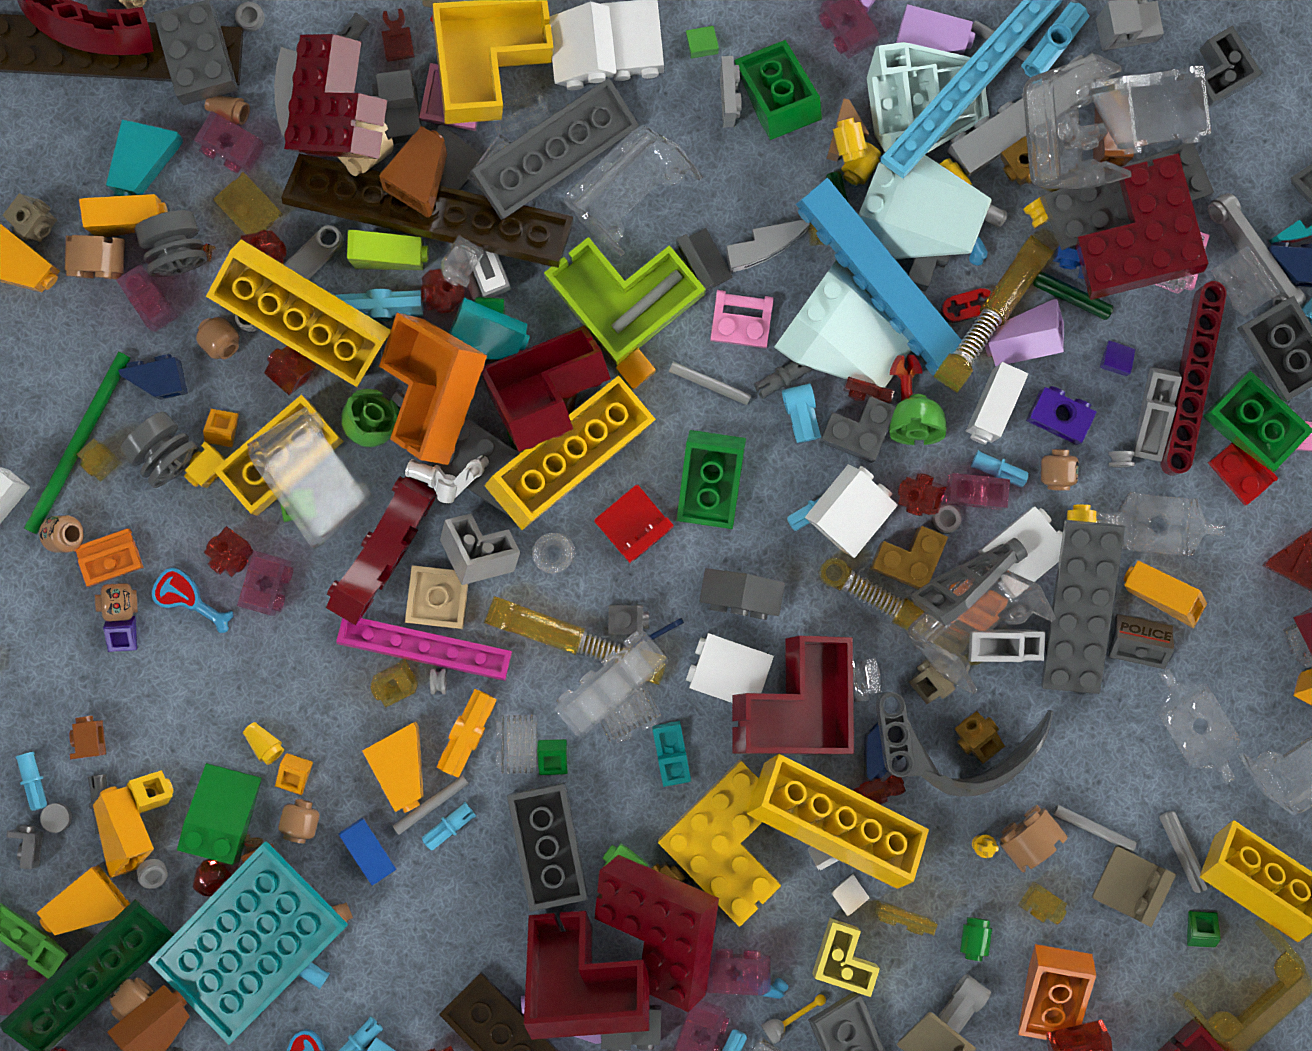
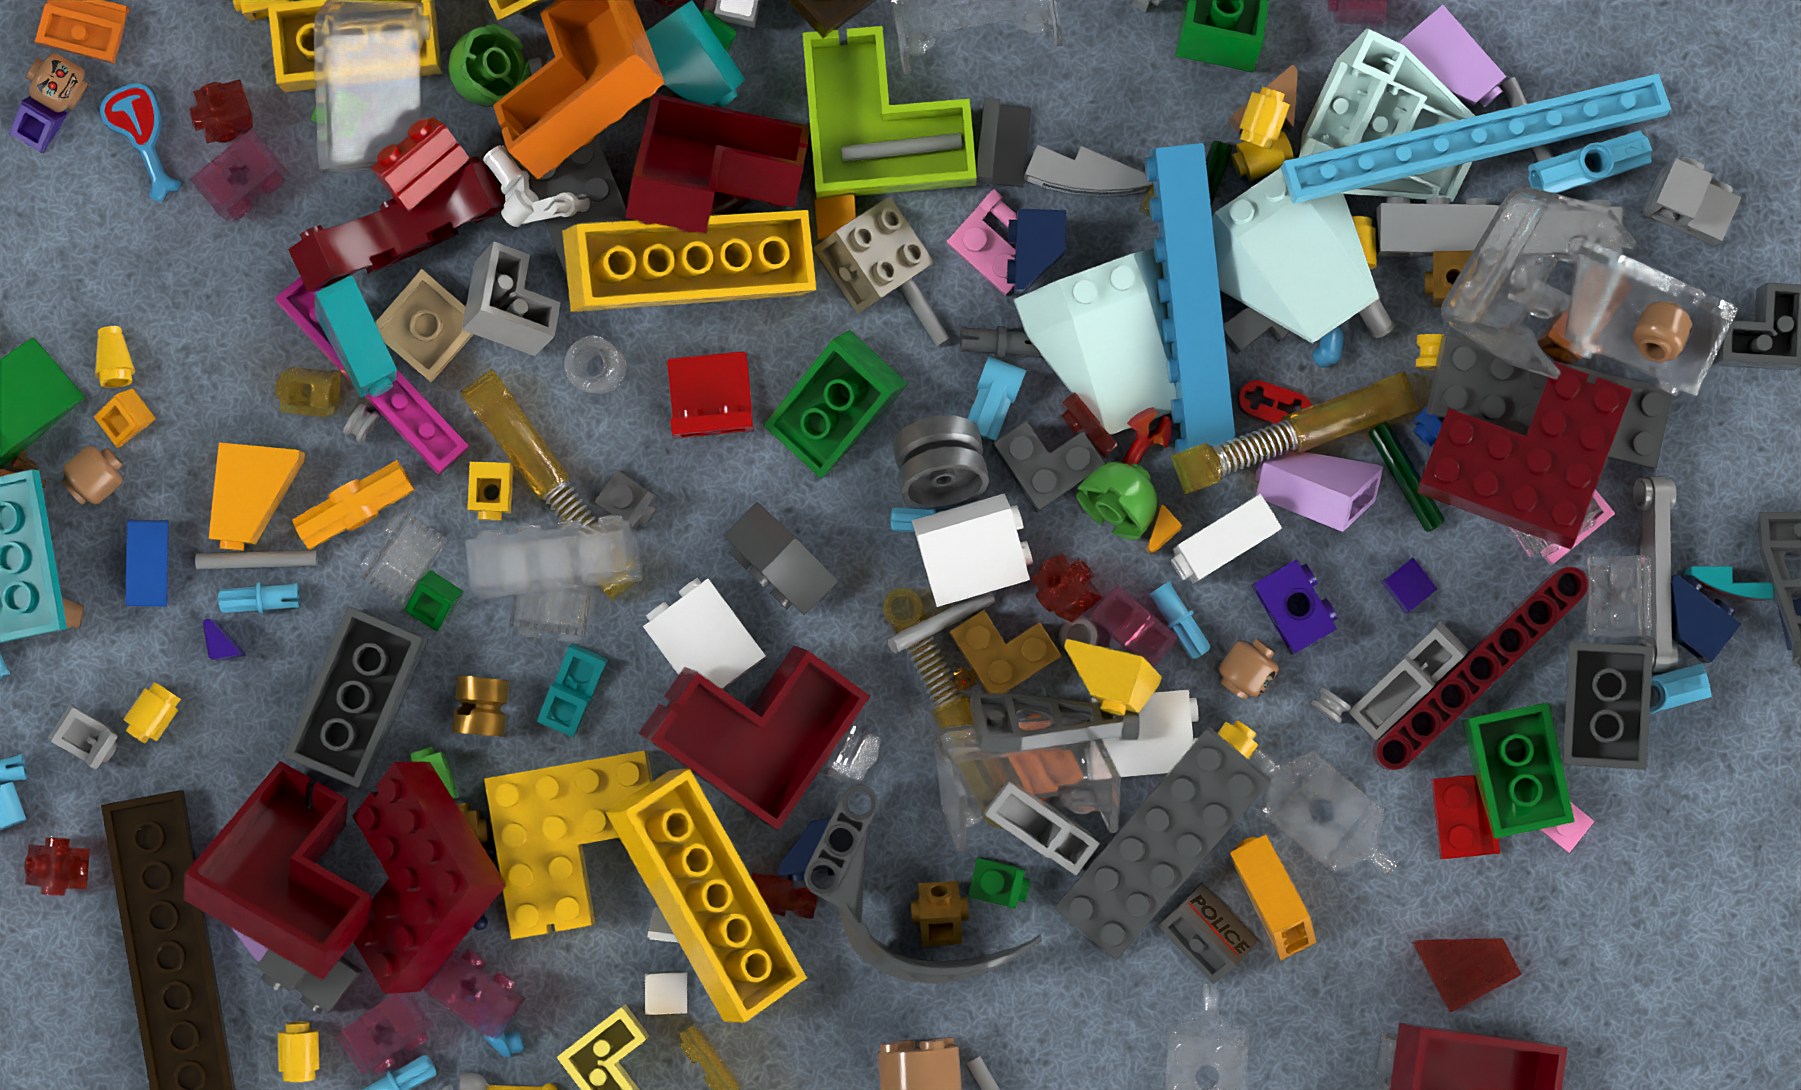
camera: 40 degrees right, 0 degrees up
(369, 502) = (419, 162): none -> brick
(401, 980) = (84, 737): none -> light grey bracket
(402, 633) = (355, 337): none -> teal slope
(431, 938) = (151, 713): none -> yellow brick
(443, 869) = (219, 642): none -> dark purple slope
(534, 660) = (485, 475): none -> yellow brick
(625, 801) = (480, 706): none -> pearl gold wheel
(667, 628) = (678, 543): dark blue hinge -> none
(673, 376) = (873, 254): none -> dark tan bracket
(767, 303) = (1039, 245): none -> dark blue slope
(799, 471) = (940, 462): none -> flat silver wheel
(861, 566) = (940, 621): none -> light grey bar
(899, 589) = (964, 679): none -> clear orange piece
(930, 683) = (924, 812): dark tan brick -> none
(955, 422) = (1164, 529): none -> light orange slope
(984, 846) = (859, 1042): yellow axle -> none
(989, 529) = (1114, 677): none -> yellow slope
(1000, 695) = (998, 883): none -> green bracket
(1168, 108) = (1662, 331): none -> medium nougat head

